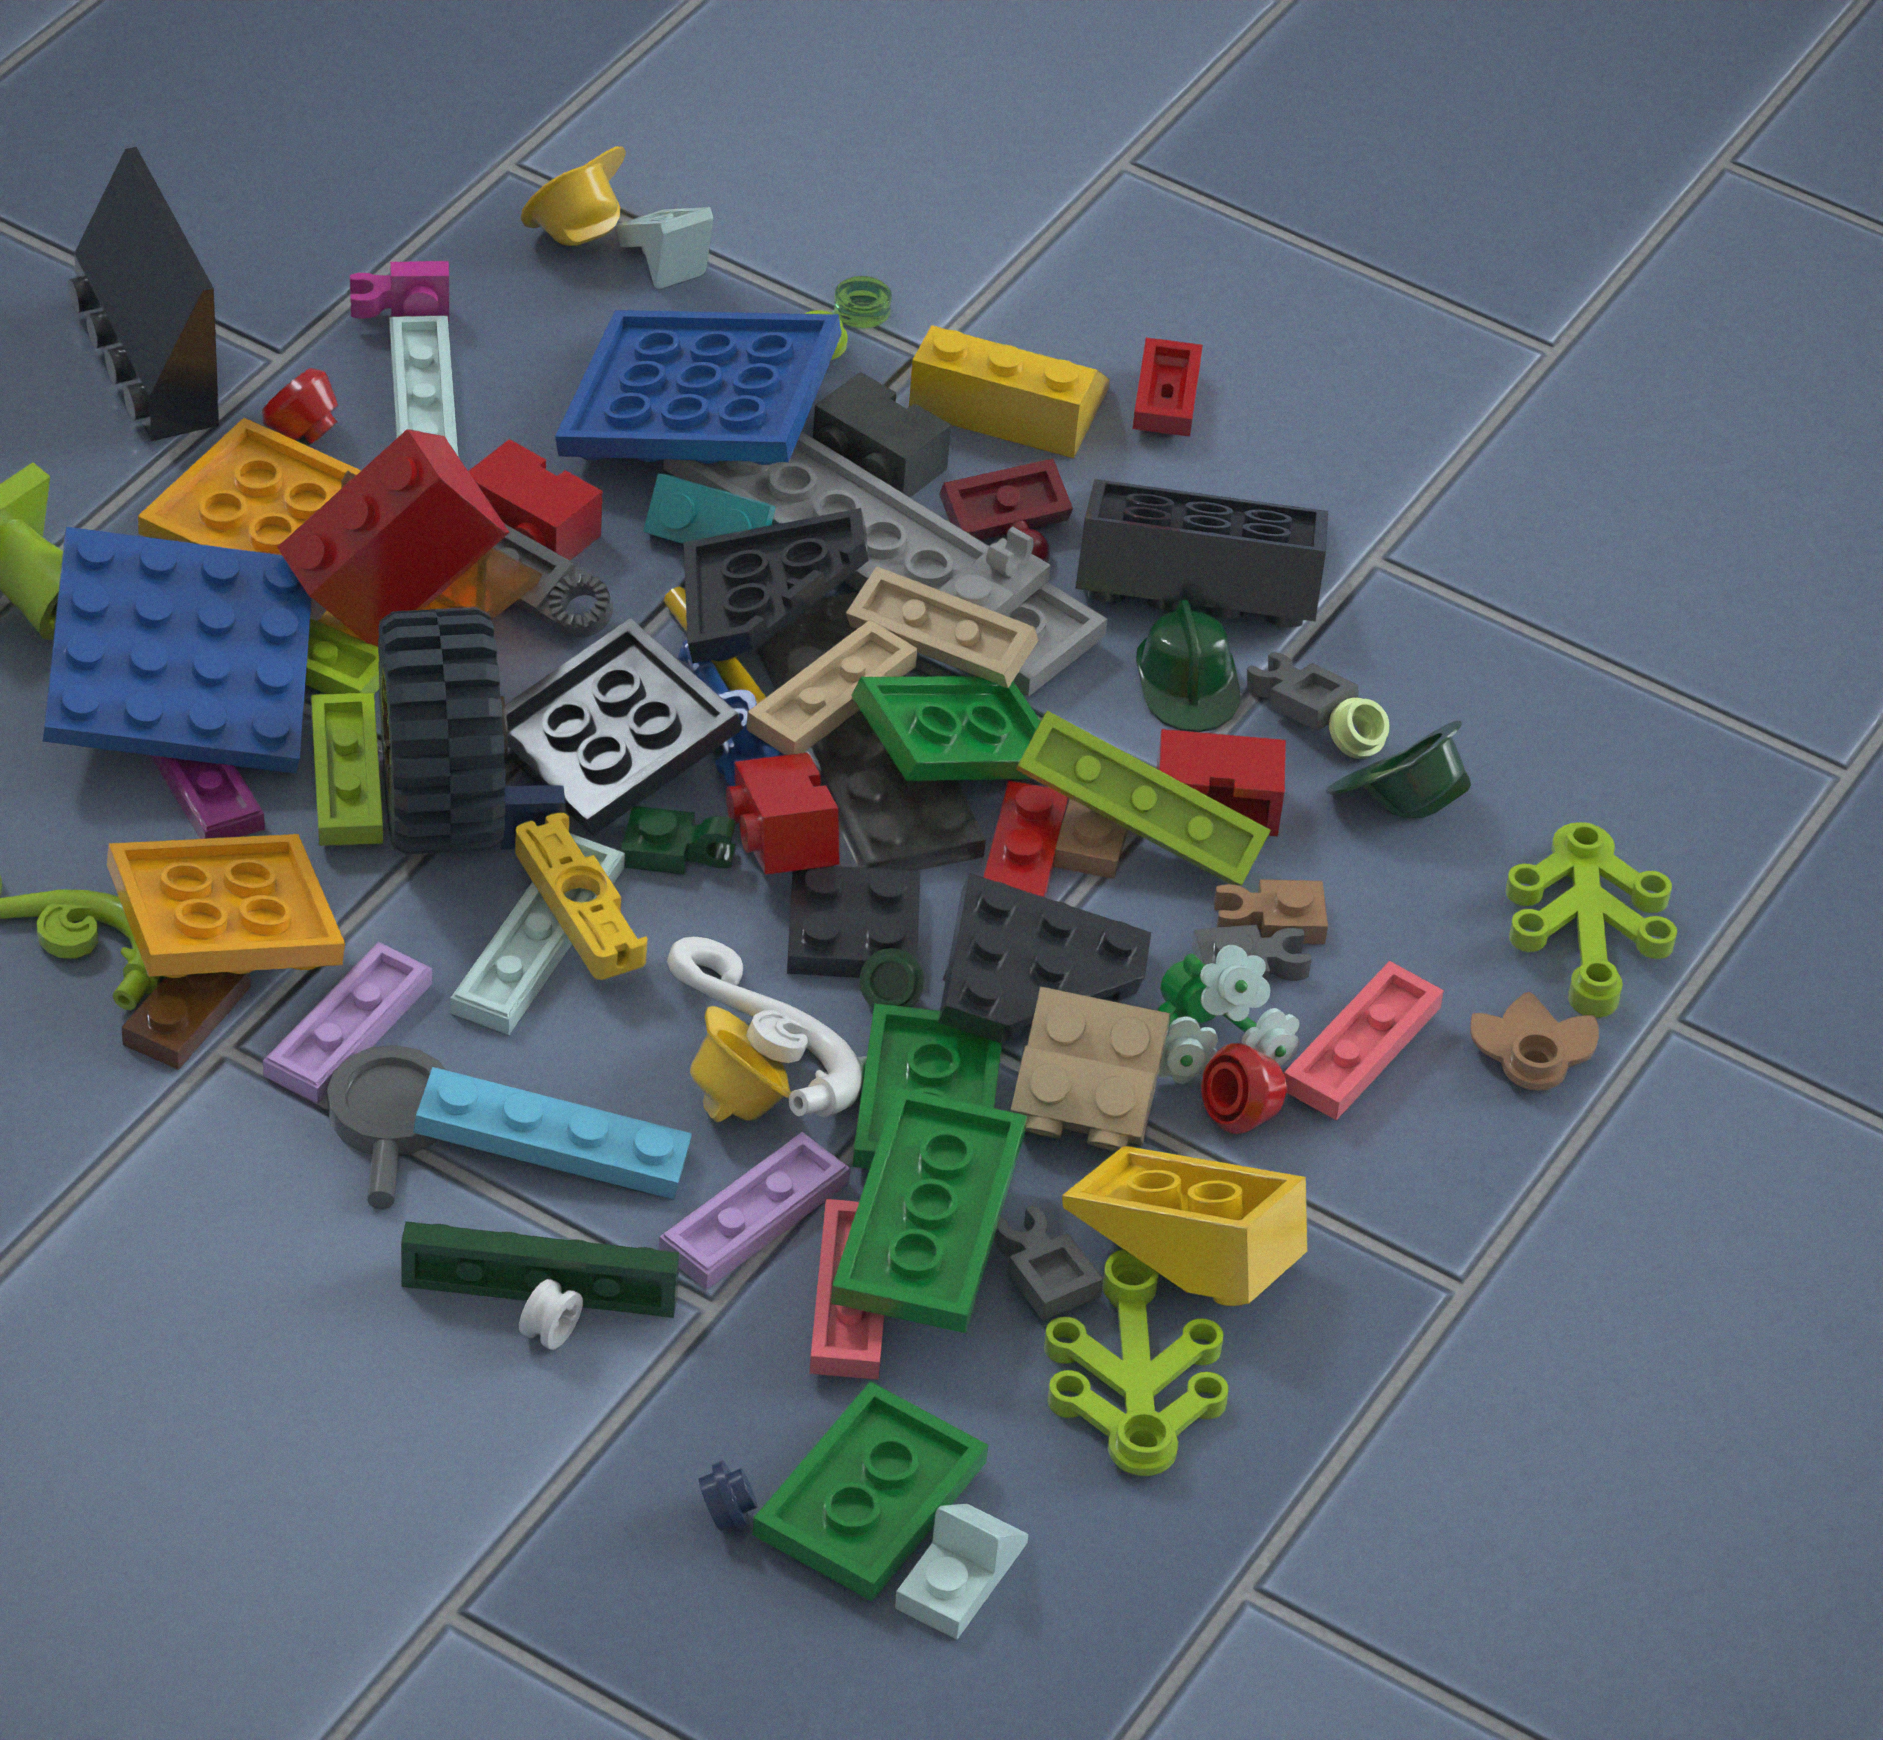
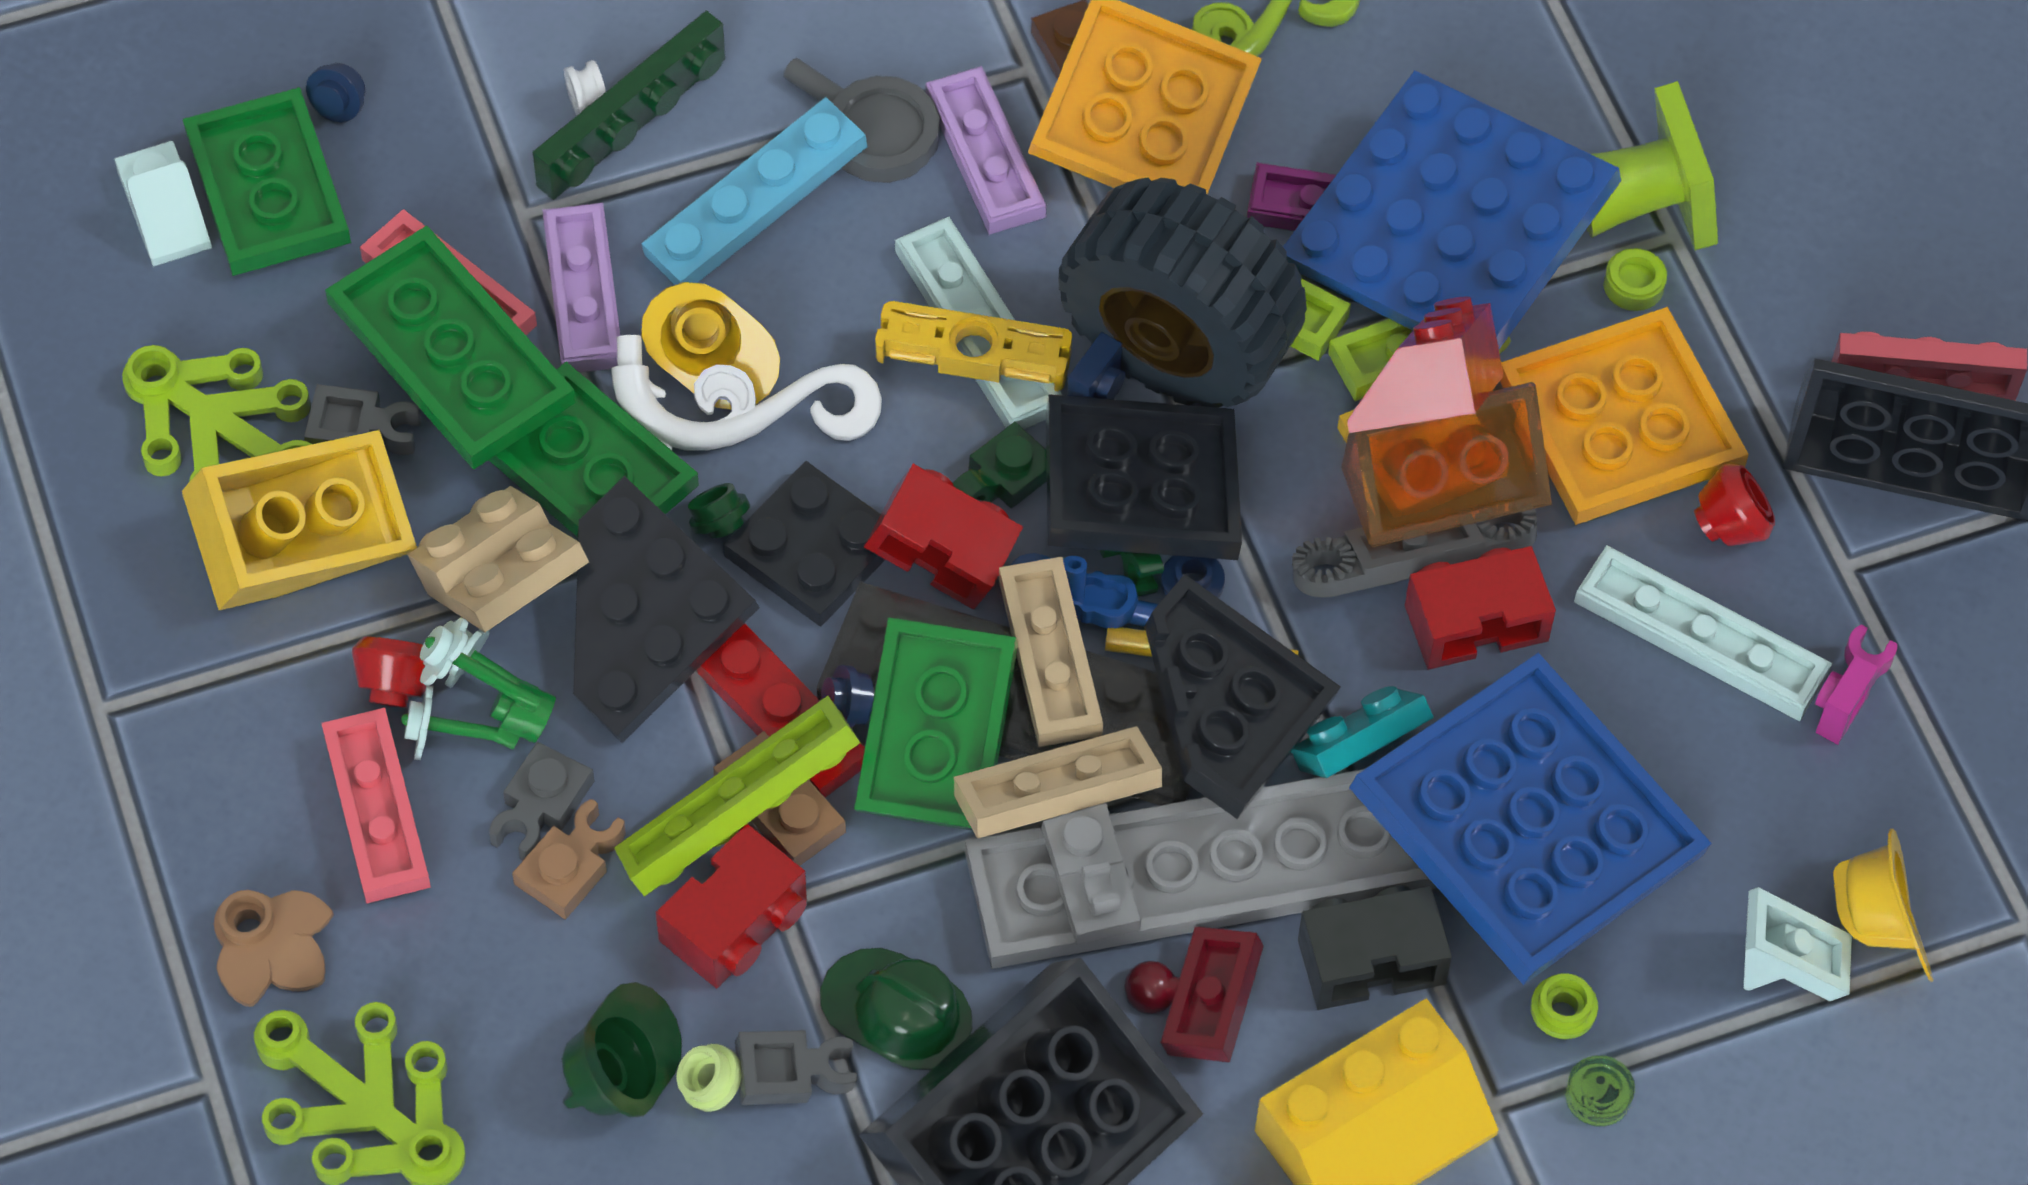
camera: 130 degrees right, 15 degrees up
(58, 361) = (1977, 368): none -> coral plate
(988, 790) = (851, 693): none -> dark blue plate

